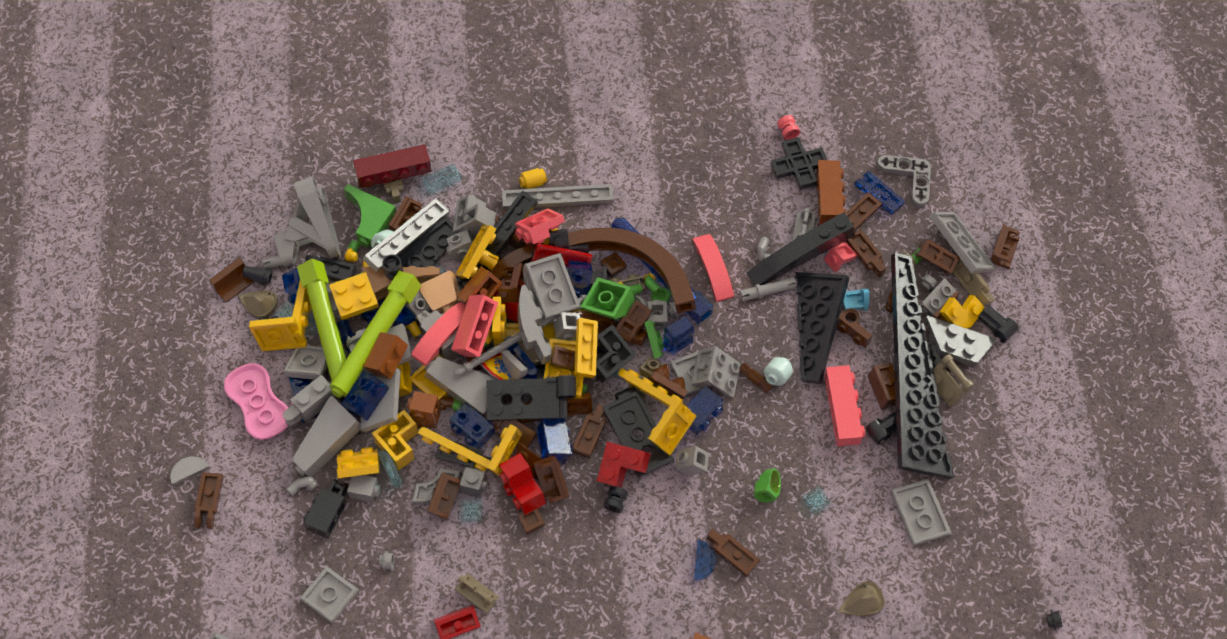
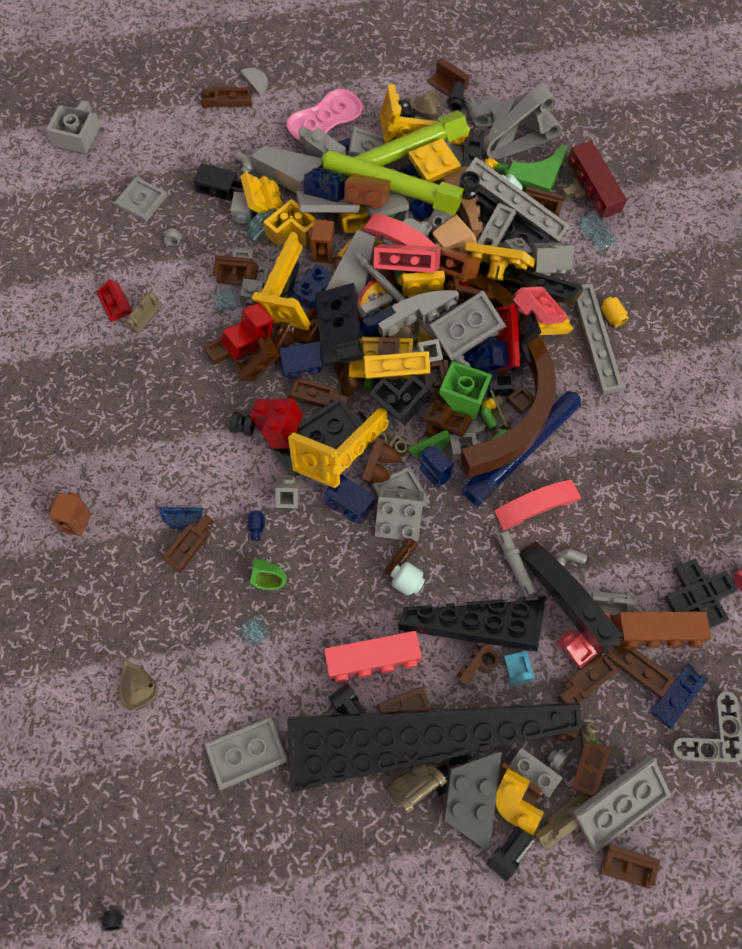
camera: 85 degrees right, 5 degrees up
(433, 255) = (497, 225): none -> light grey plate
(717, 493) = (255, 524): none -> clear blue cylinder

